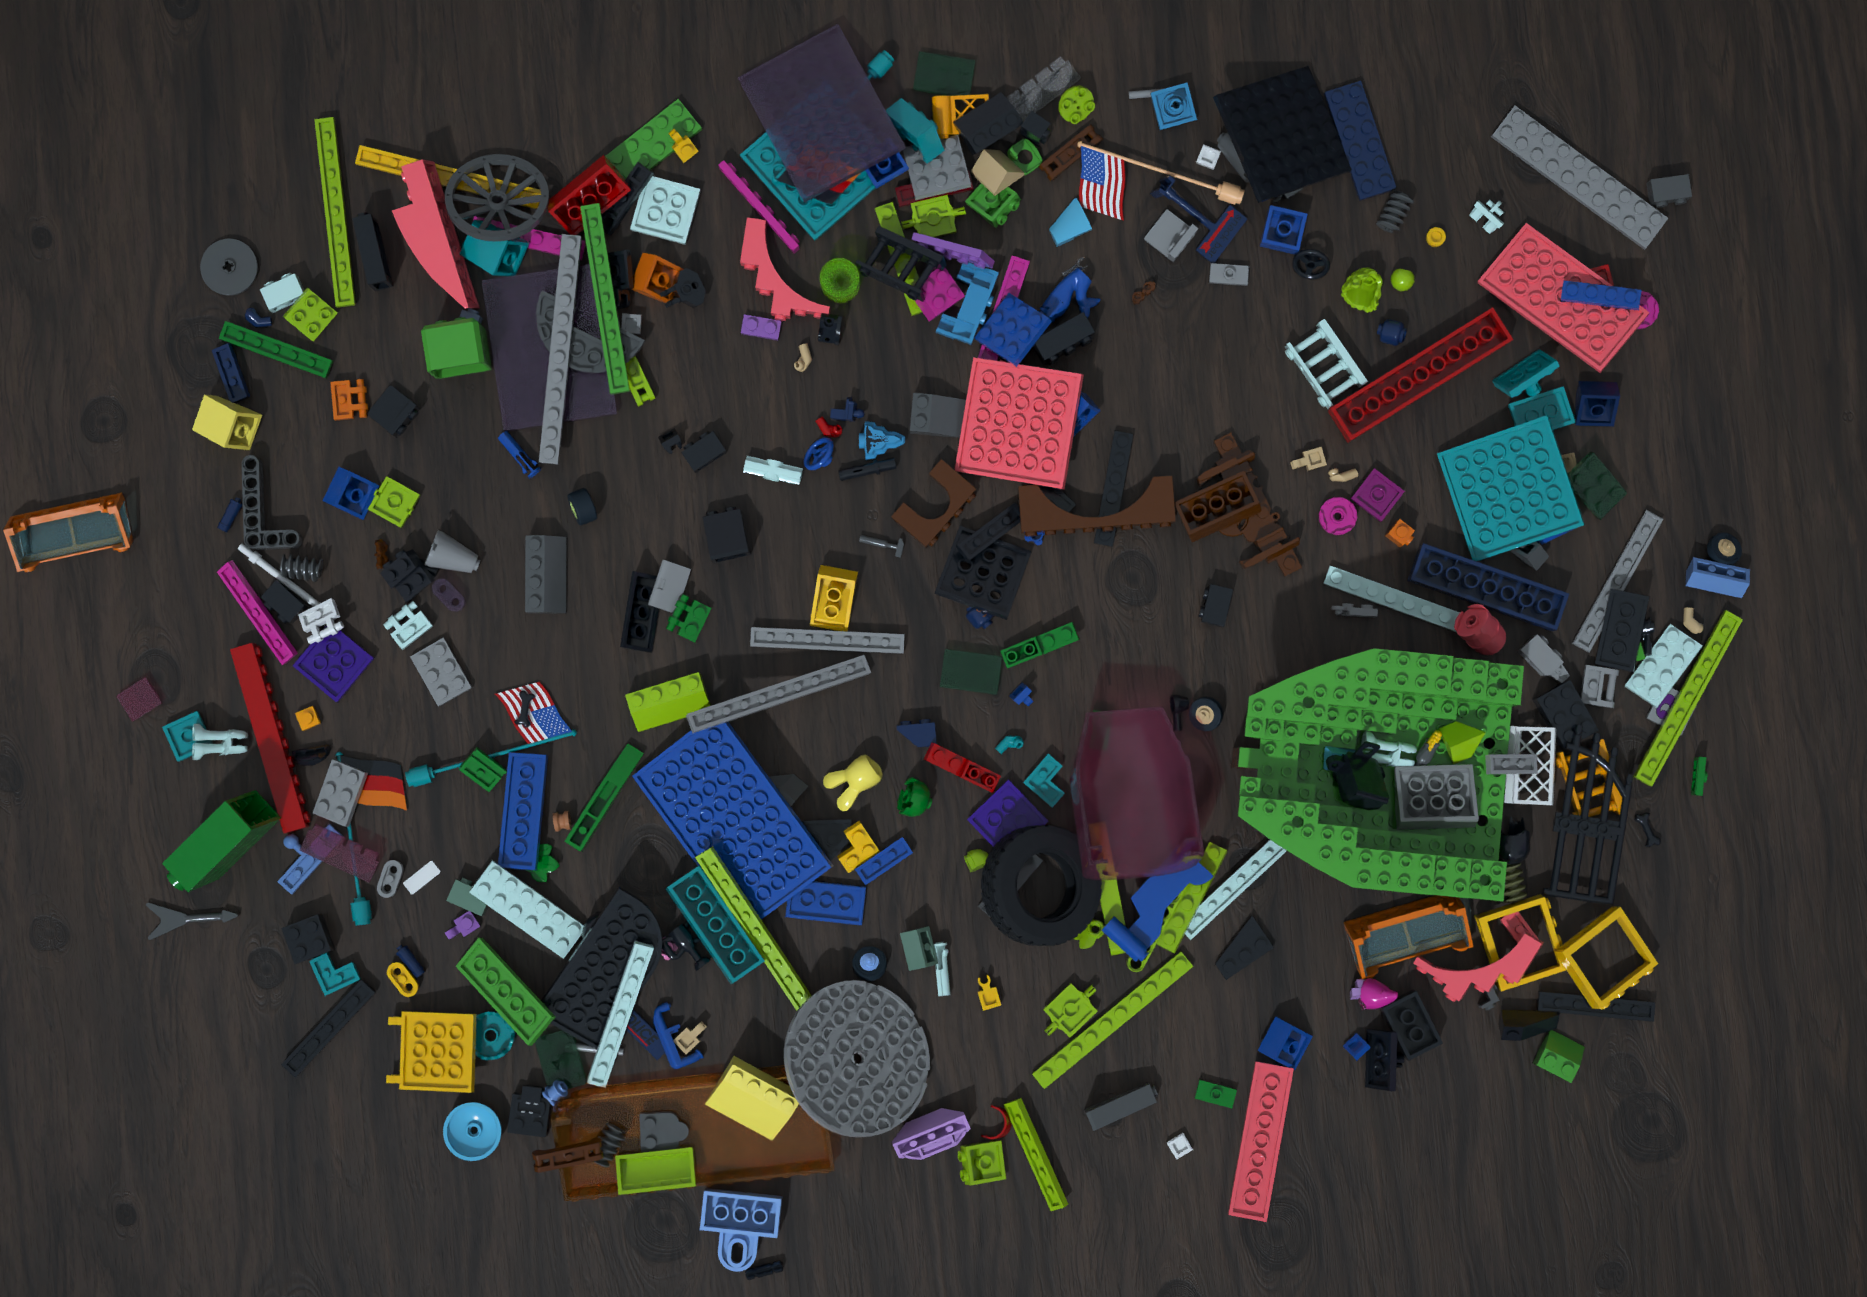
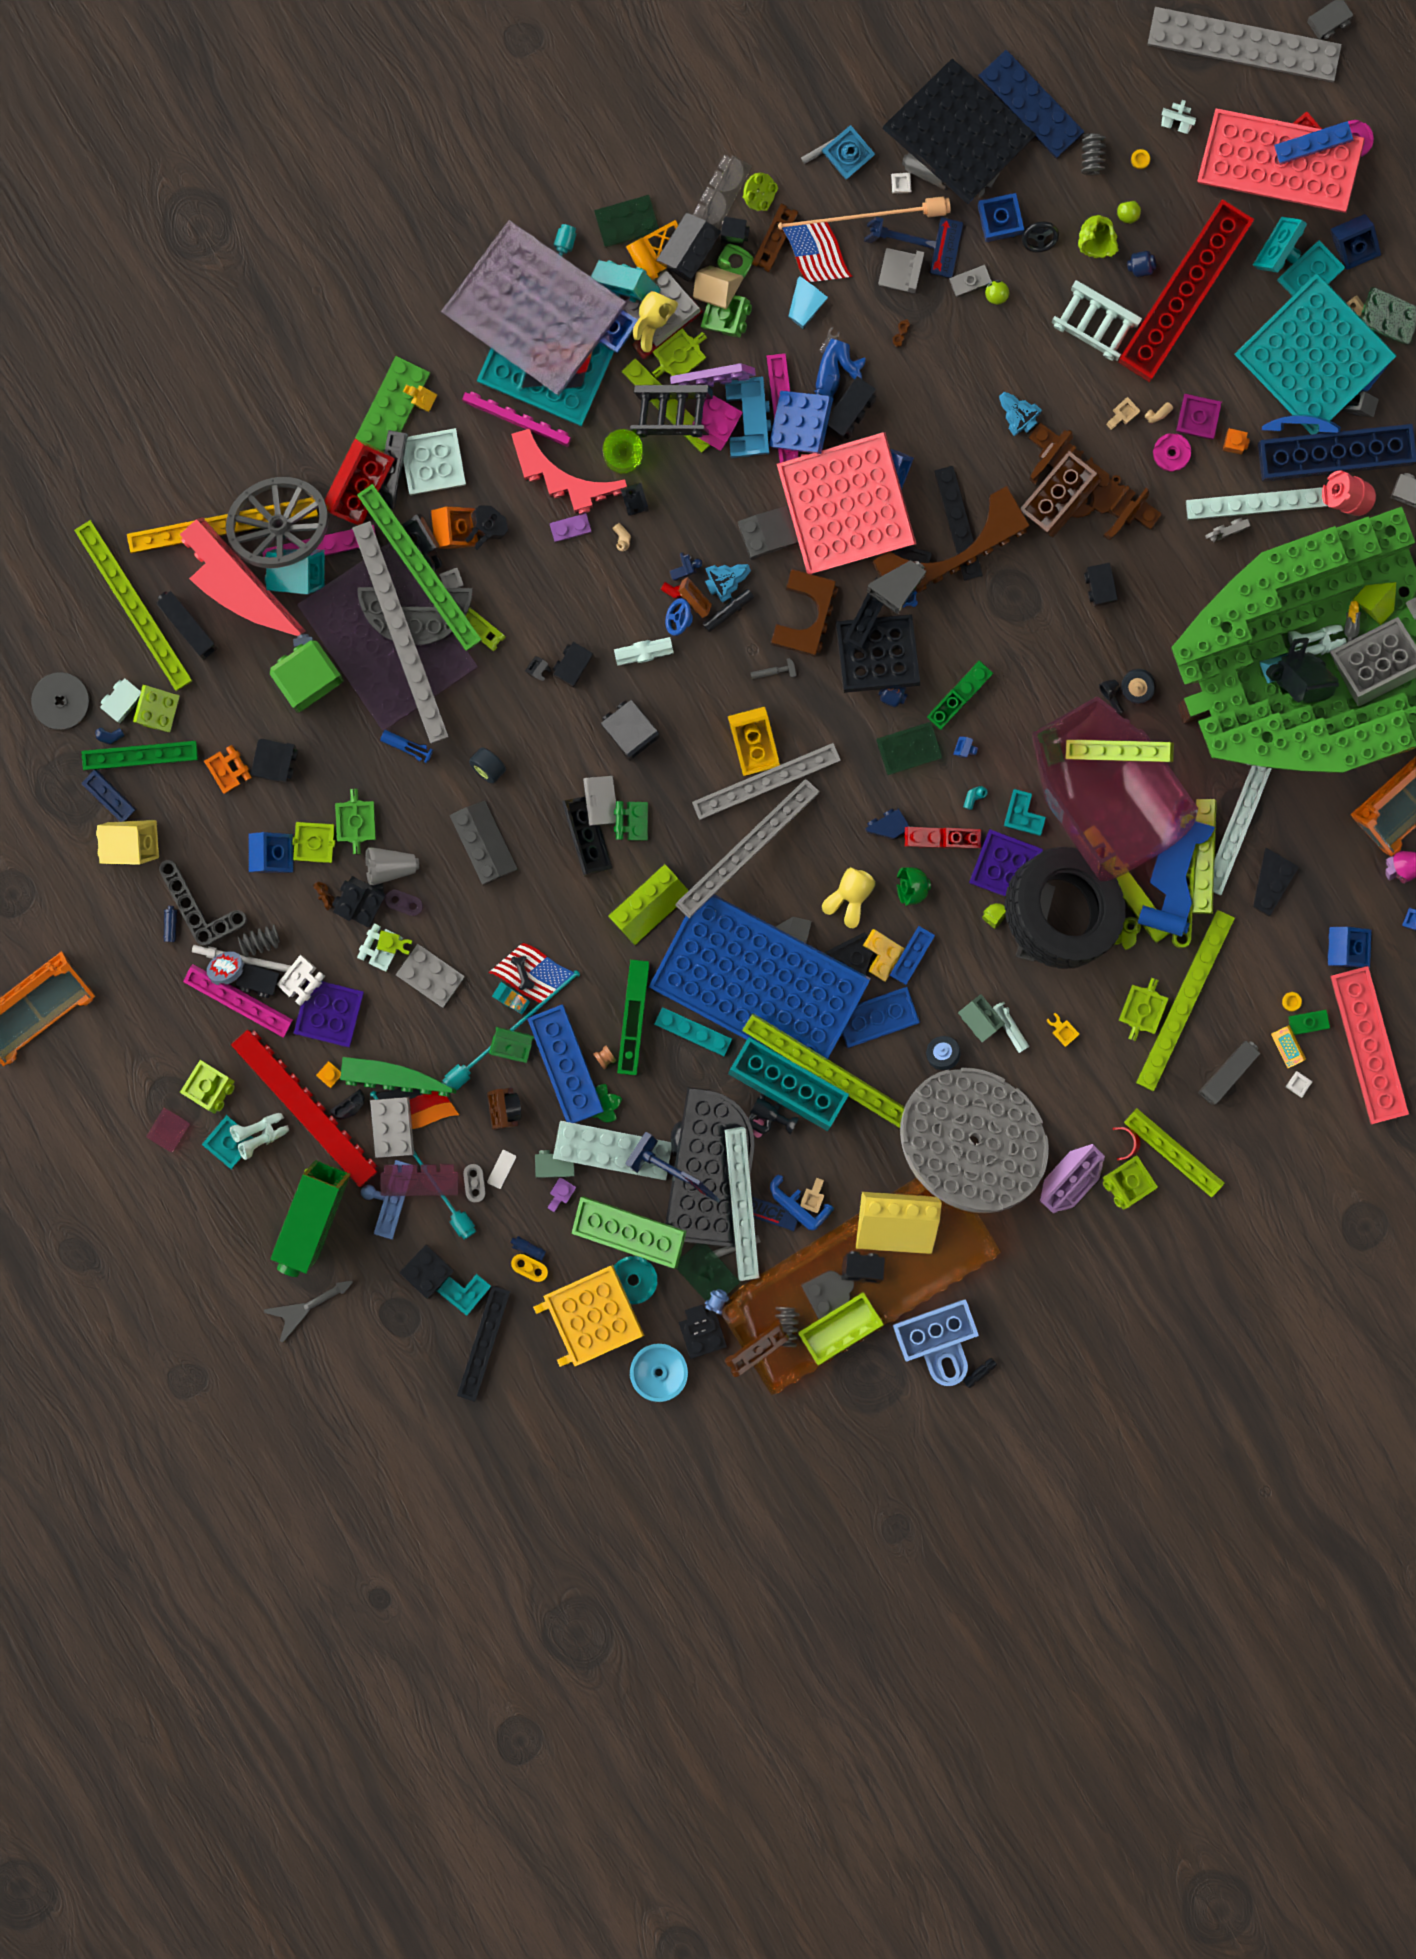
camera: 30 degrees left, 0 degrees up
(192, 678) = (208, 1087): none -> lime plate
(257, 578) = (225, 968): none -> tile
(360, 746) = (390, 1076): none -> green slope
(419, 626) = (390, 943): none -> lime plate
(440, 501) = (355, 821): none -> bright green plate
(448, 824) = (504, 1108): none -> reddish brown piece
(503, 727) = (510, 998): none -> teal leg
(552, 926) = (643, 1153): none -> dark blue piece
(653, 835) = (693, 1031): none -> teal plate
(702, 1124) = (863, 1267): none -> black brick
(842, 443) = (695, 597): none -> dark orange plate
(925, 169) = (653, 314): none -> light yellow piece
(1029, 519) = (898, 585): none -> dark grey slope
(1159, 766) = (1119, 750): none -> lime plate
(1186, 1107) = (1288, 1046): none -> tile
(1209, 1067) = (1291, 1001): none -> yellow tile
(1216, 416) = (1019, 413): none -> dark azure rock
(1248, 296) = (997, 292): none -> lime piece
(1488, 557) = (1324, 424): none -> blue slope

